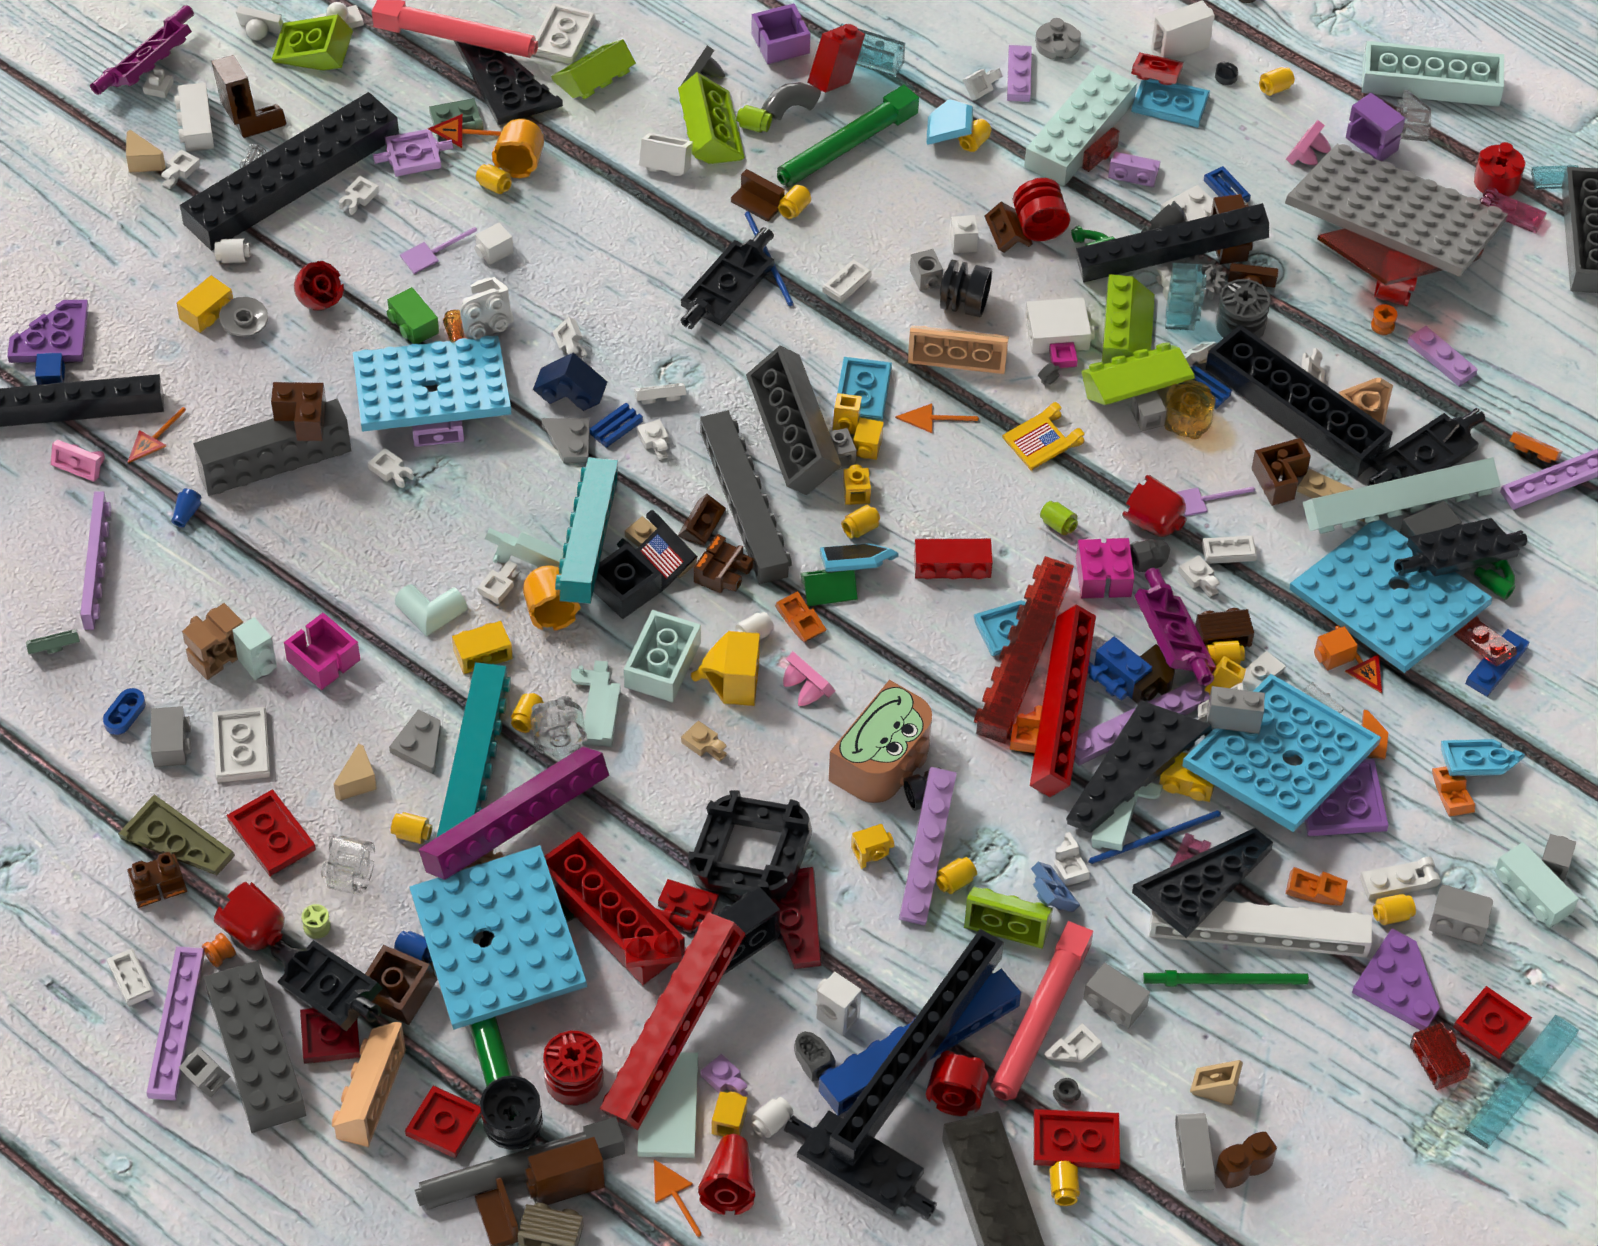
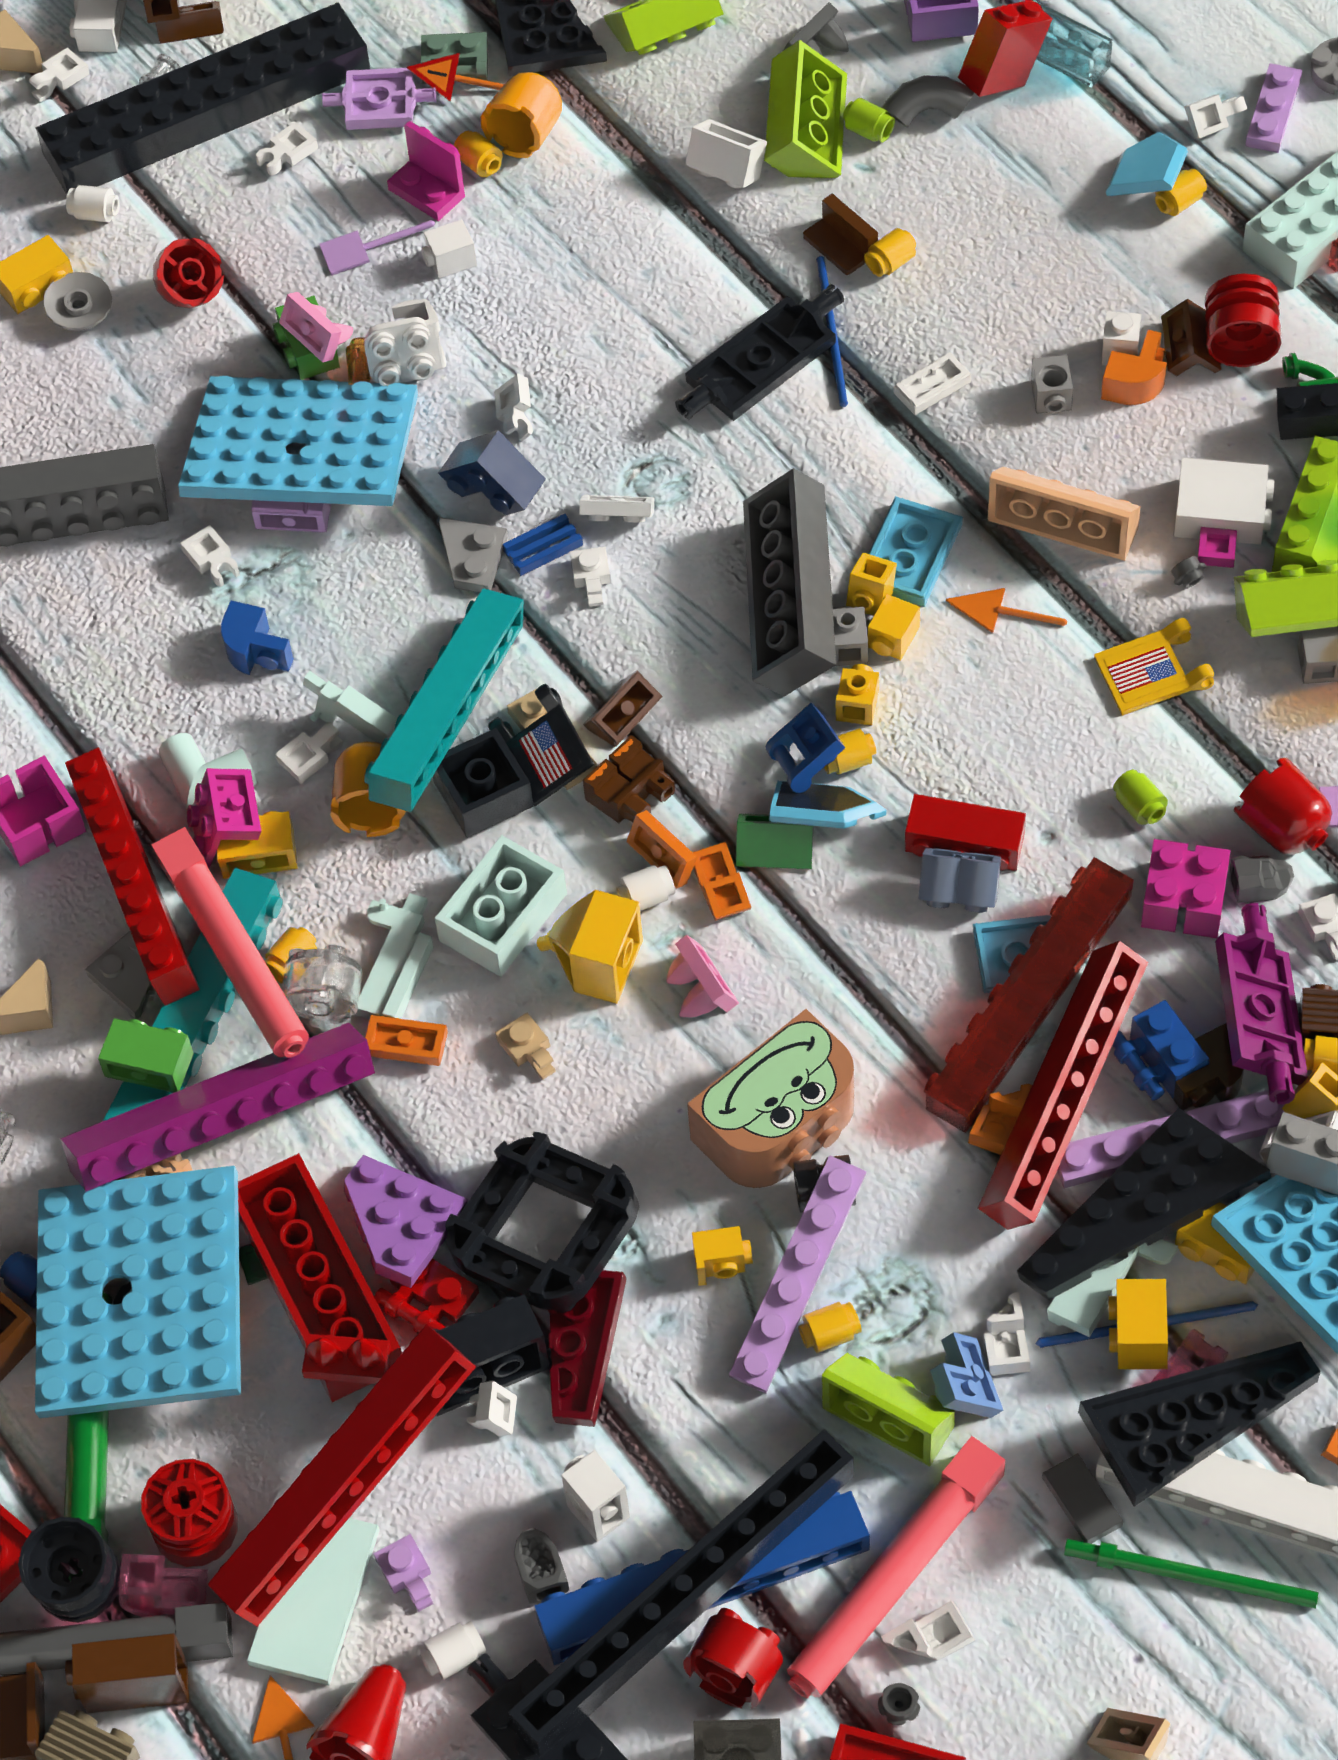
camera: 20 degrees right, 5 degrees up
(302, 404) = (98, 448): reddish brown brick -> none
(408, 680) = (132, 877): none -> red brick
(411, 827) = (78, 1097): yellow brick -> none
(420, 307) = (312, 327): none -> bright pink tile
(435, 521) = (248, 642): none -> blue brick
(447, 671) = (231, 943): none -> coral brick
(454, 626) = (223, 810): none -> dark pink bracket
(456, 789) = (146, 1055): none -> bright green brick
(466, 195) = (431, 176): none -> dark pink bracket
(564, 1118) = (154, 1590): none -> clear pink brick
(624, 751) = (406, 1040): none -> orange plate
(654, 861) = (399, 1217): none -> medium lavender plate
(729, 1114) = (393, 1632): yellow brick -> none
(744, 497) = (690, 685): dark grey brick -> none
(753, 967) = (494, 1409): none -> white tile
(754, 600) = (661, 847): none -> orange plate
(839, 515) = (815, 742): none -> blue plate
(896, 108) = (1076, 134): green brick -> none
(959, 587) = (959, 879): none -> sand blue brick
(966, 288) = (1098, 422): black wheel -> none
(980, 253) = (1135, 378): none -> orange brick
(1116, 995) = (1014, 1568): light grey brick -> none
(1145, 948) = (1082, 1499): none -> dark grey tile
(1153, 834) = (1141, 1324): none -> yellow brick

